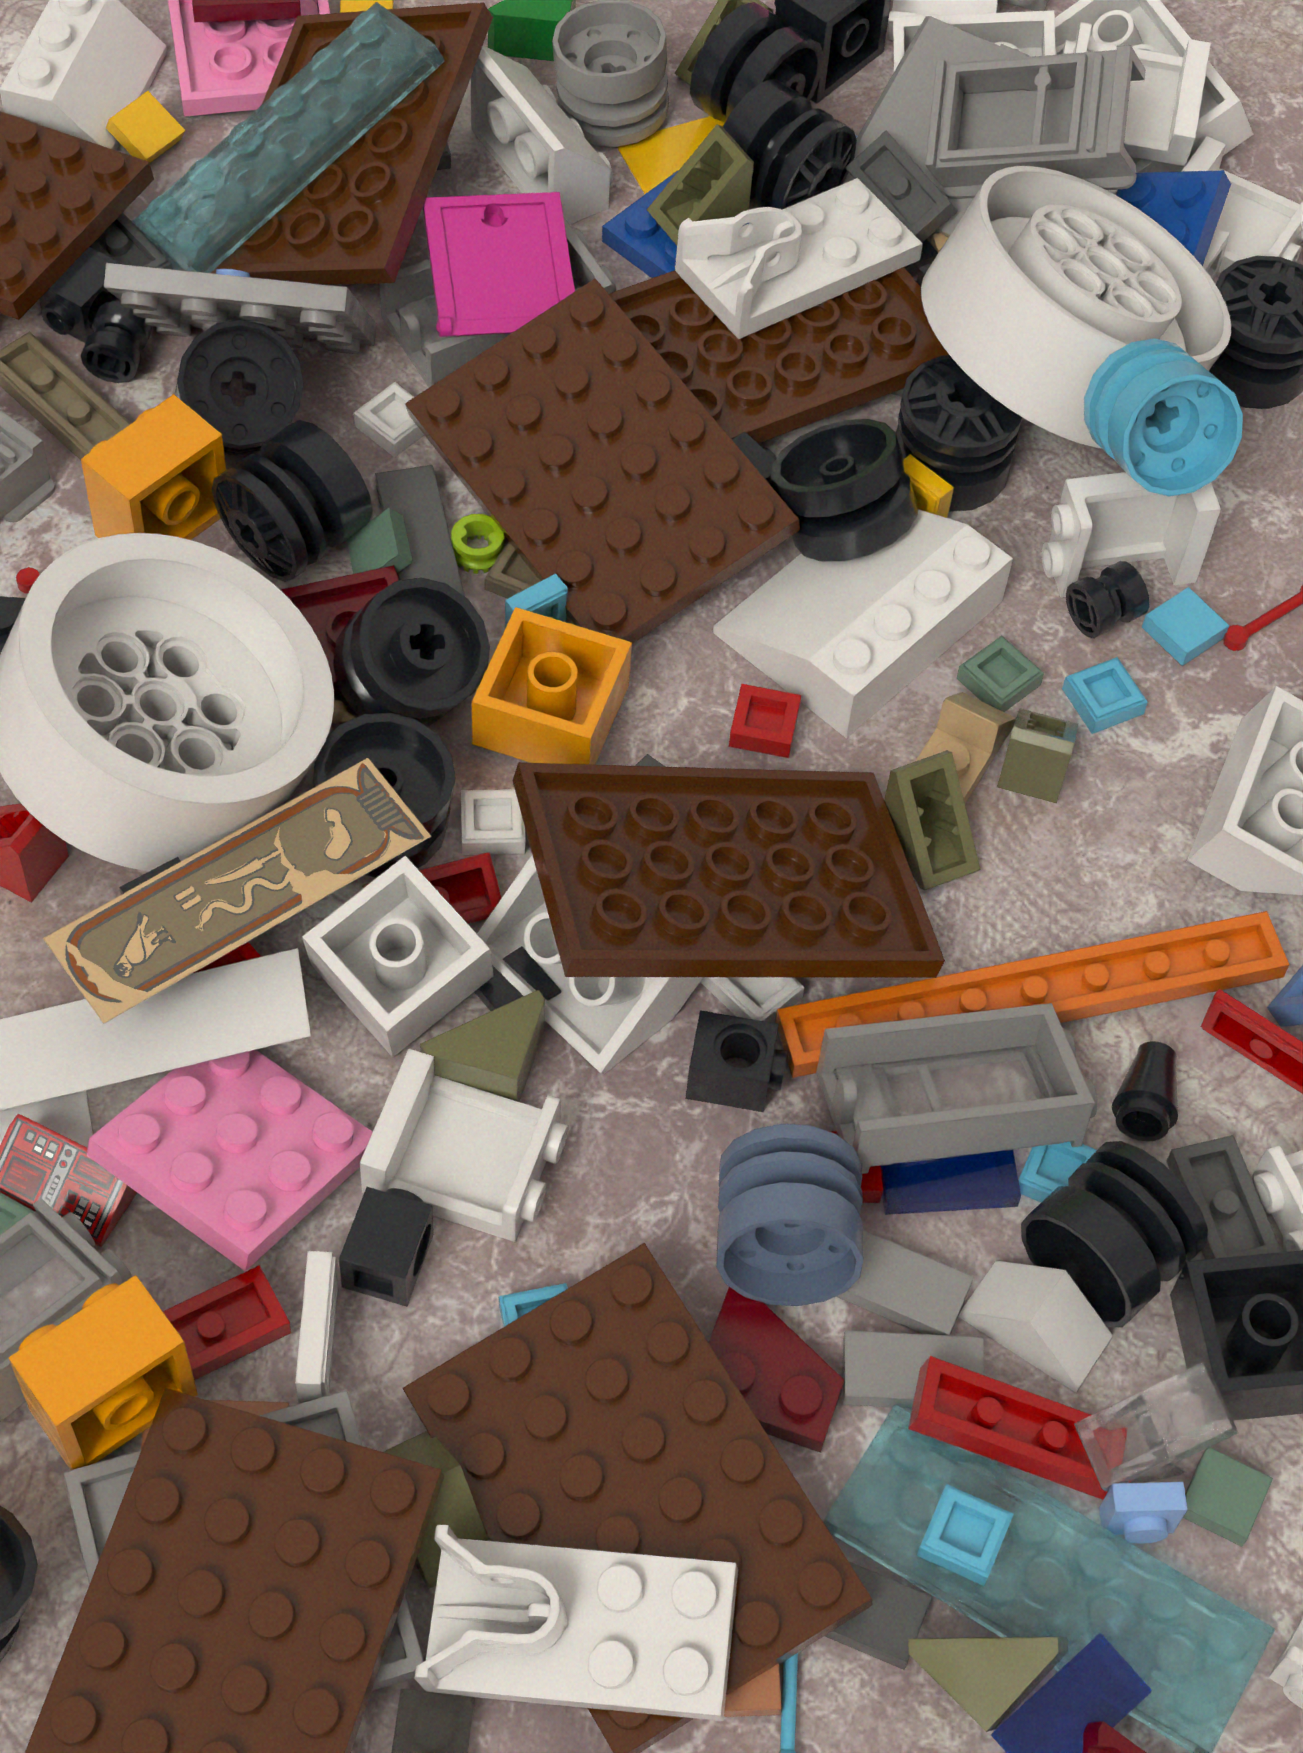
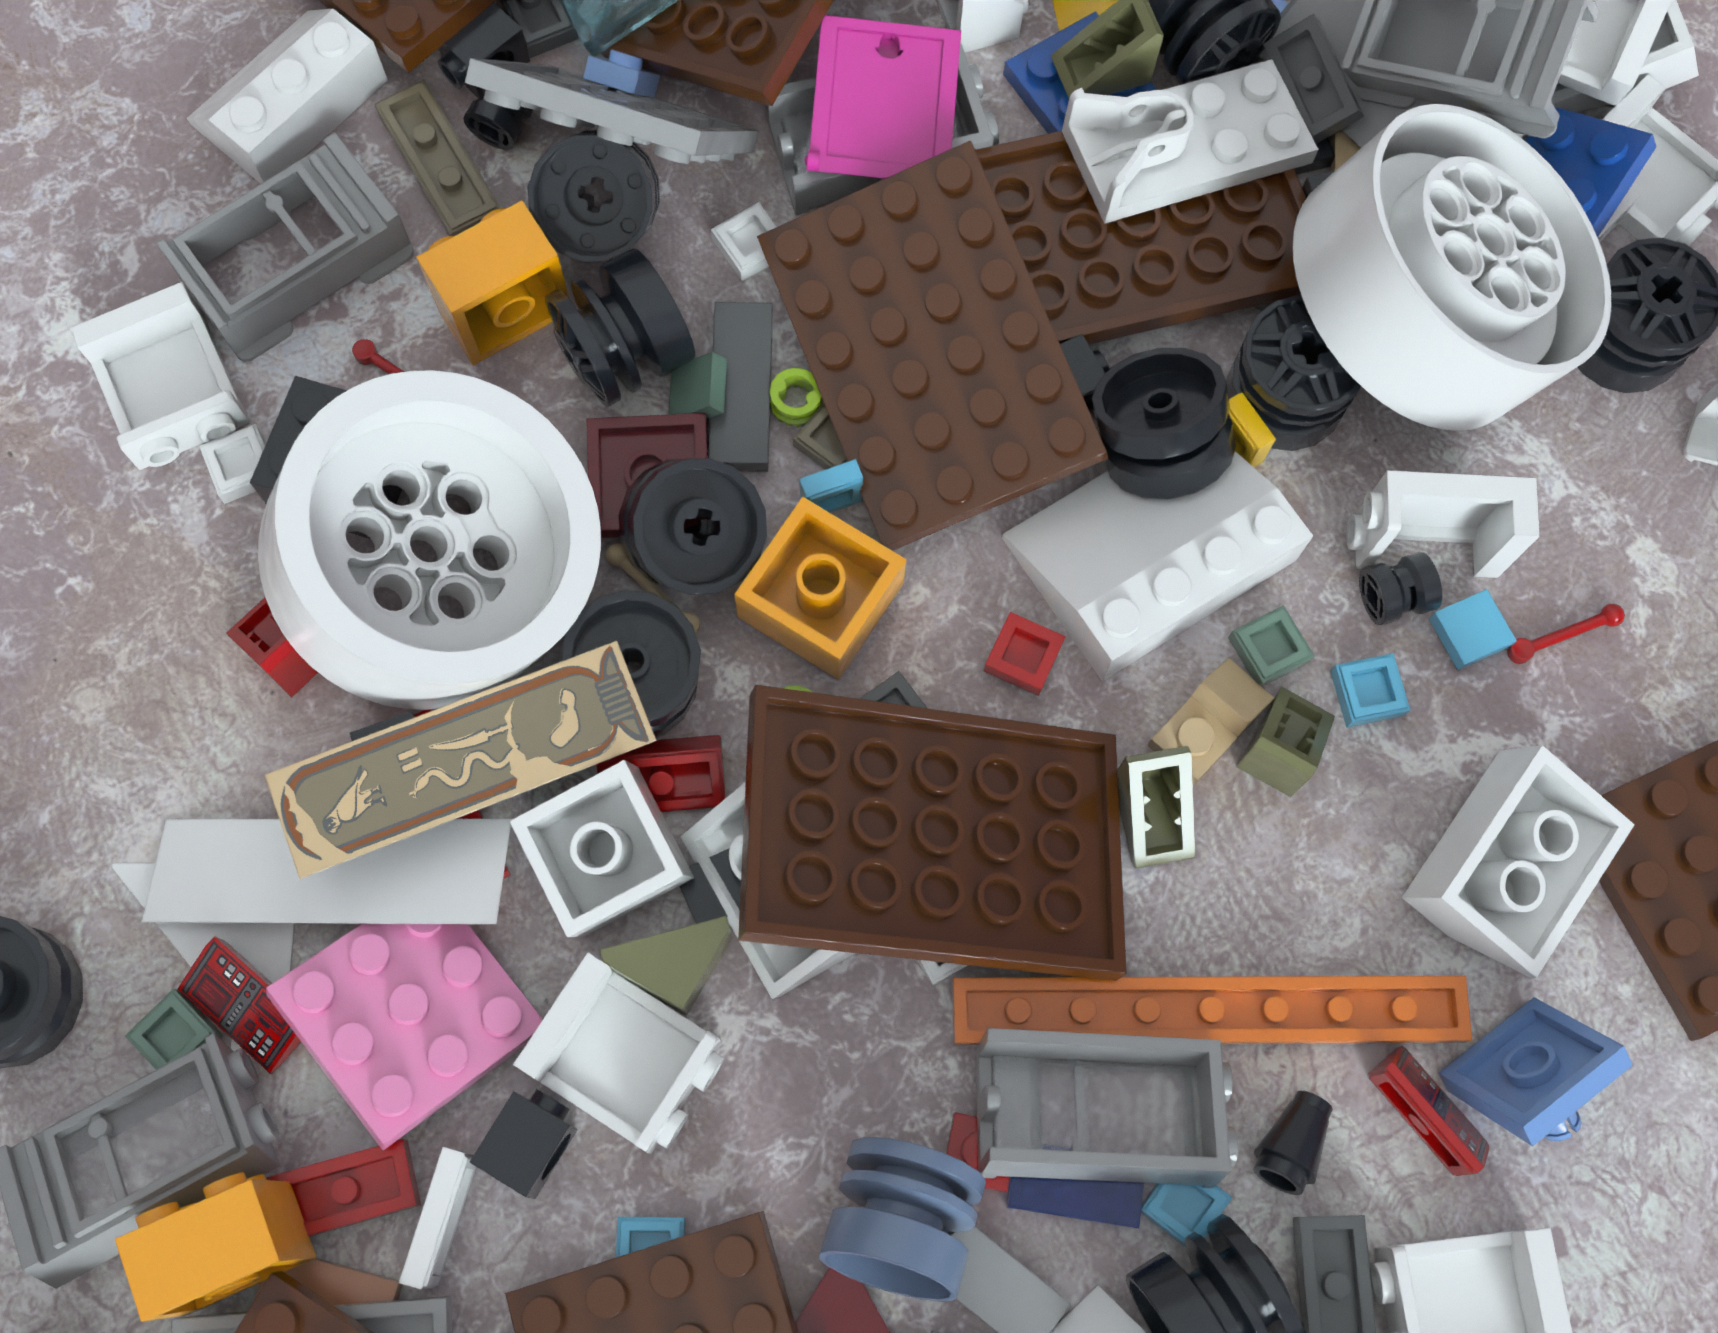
camera: 15 degrees right, 15 degrees up
(491, 822) = (728, 703): white tile -> none
(728, 1037) = (882, 998): black brick -> none
(1163, 417) = (1504, 435): medium azure wheel -> none

